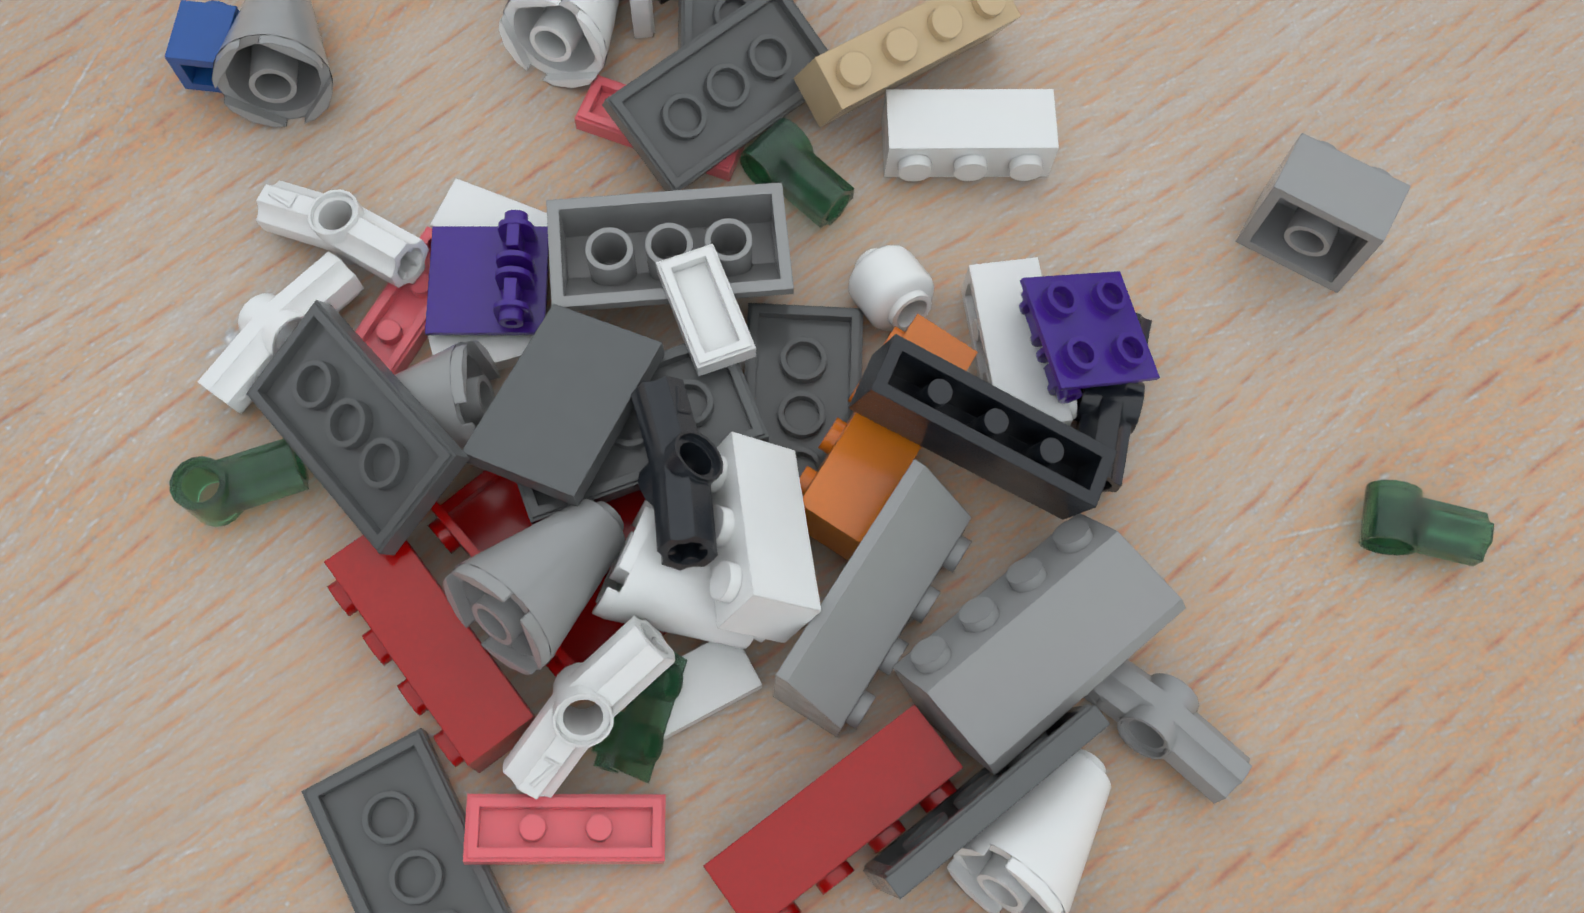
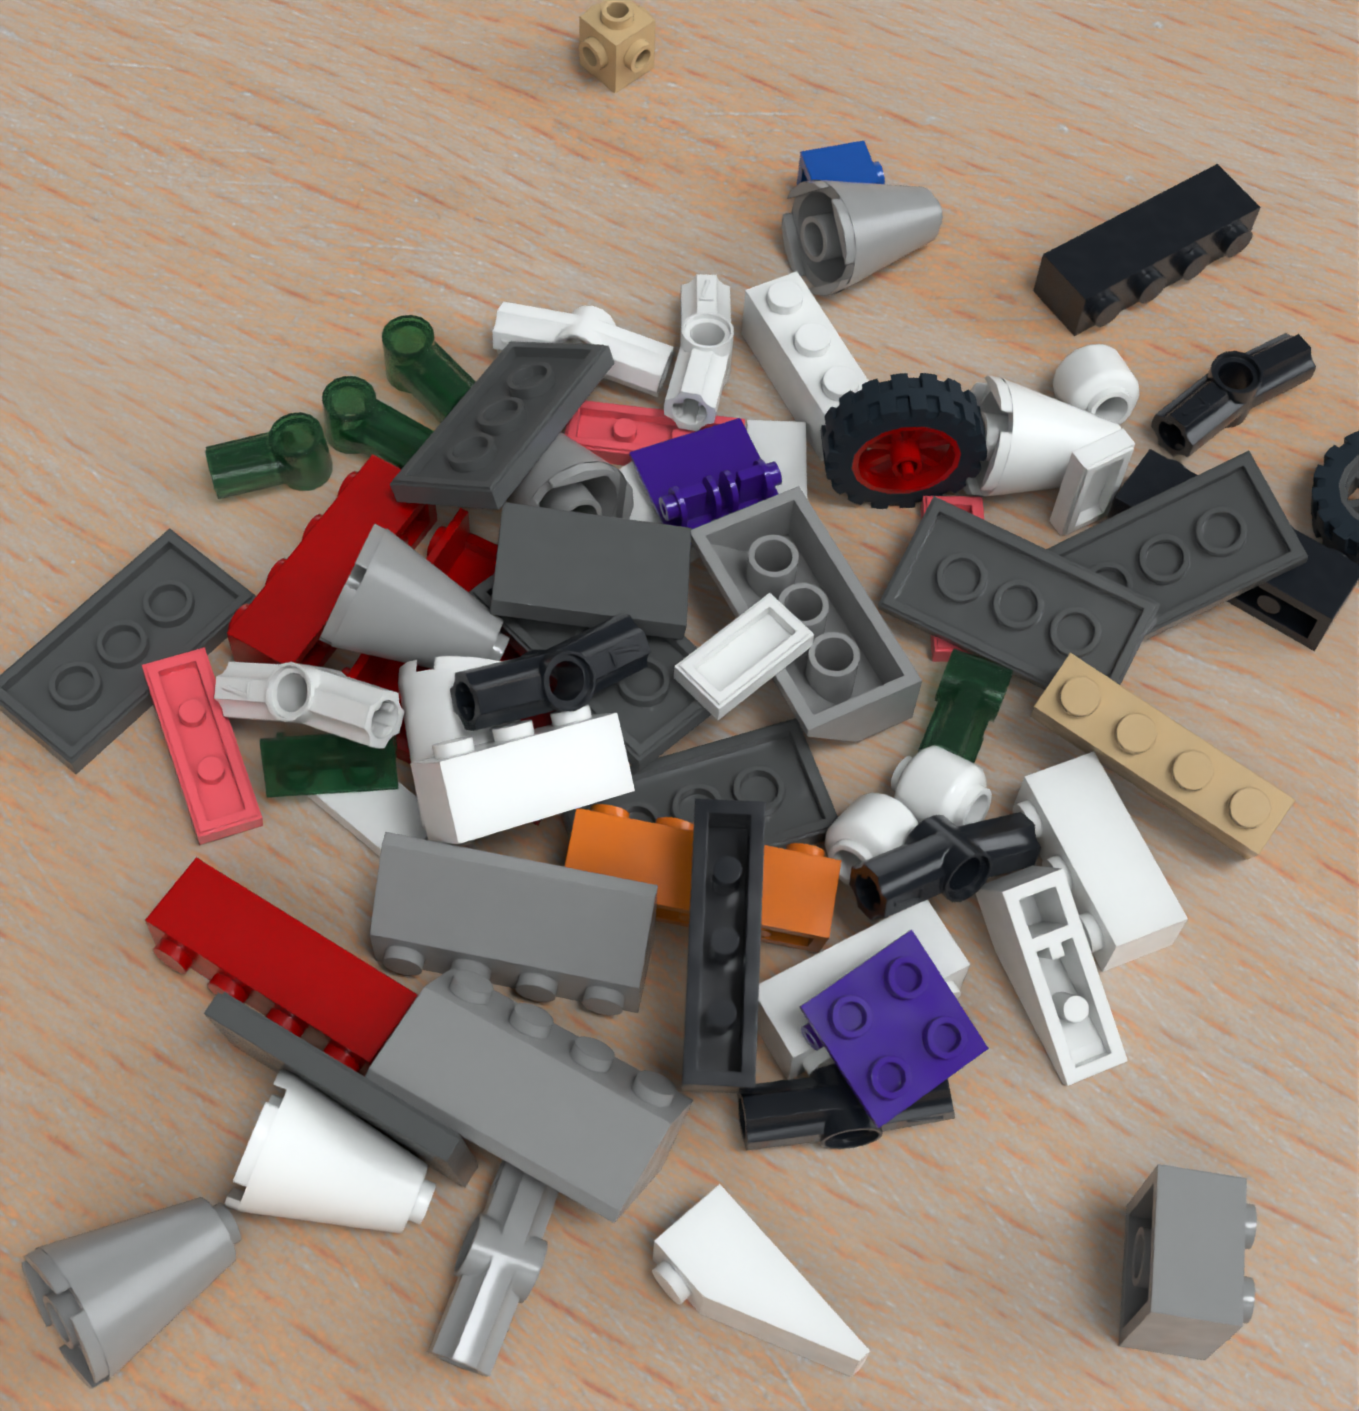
camera: 70 degrees right, 10 degrees down
(265, 675) = (272, 458): none -> clear green piece
(290, 551) = (373, 428): none -> clear green piece
(399, 148) = (799, 351): none -> white brick
(535, 100) = (921, 439): none -> black wheel
(867, 218) = (942, 785): none -> white head
(944, 241) = (944, 862): none -> black piece
(1039, 203) = (1052, 969): none -> white slope
(1222, 536) = (744, 1281): none -> white slope

